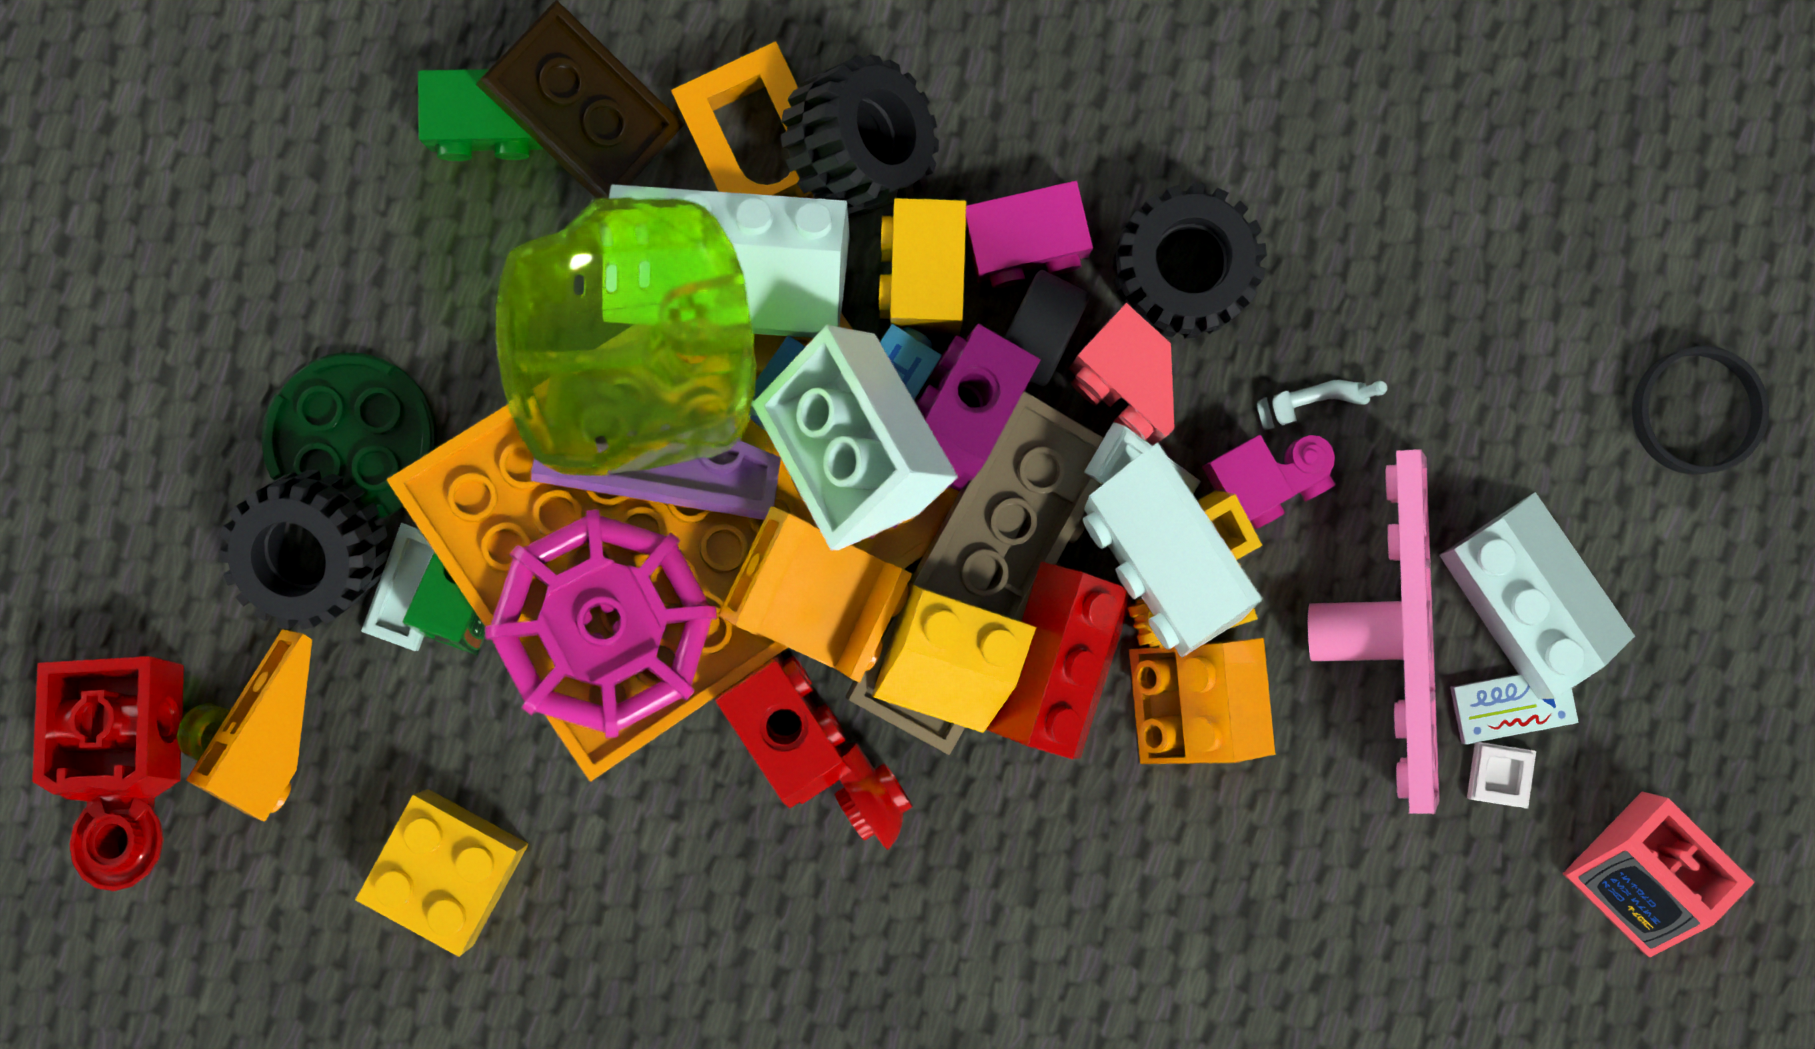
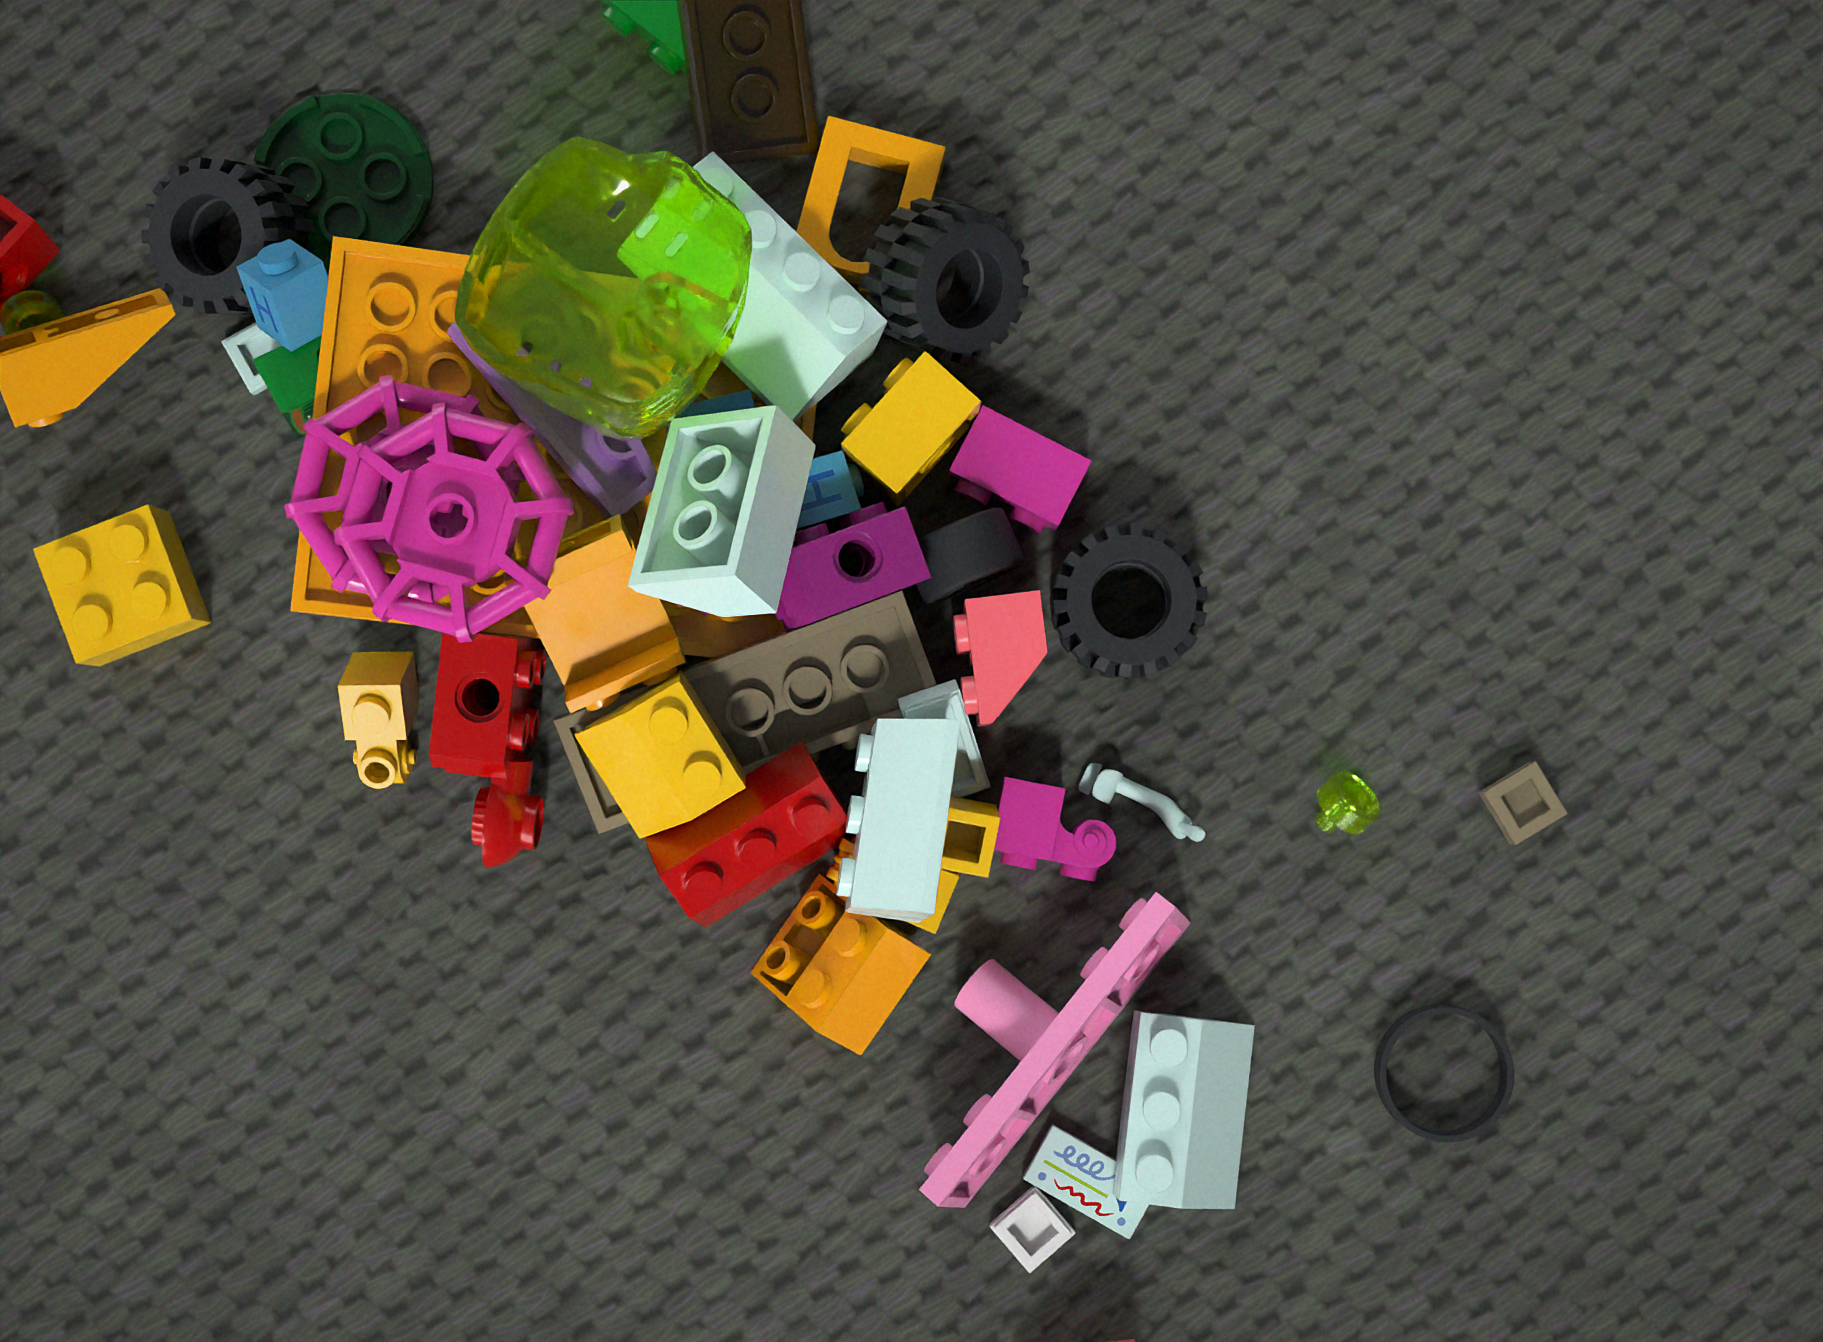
camera: 45 degrees right, 0 degrees up
(386, 551) = (286, 292): none -> dark azure brick
(694, 624) = (472, 553): none -> dark pink plate
(713, 804) = (378, 711): none -> yellow brick
(1467, 276) = (1346, 804): none -> clear neon green tile
(1592, 168) = (1522, 803): none -> dark tan plate

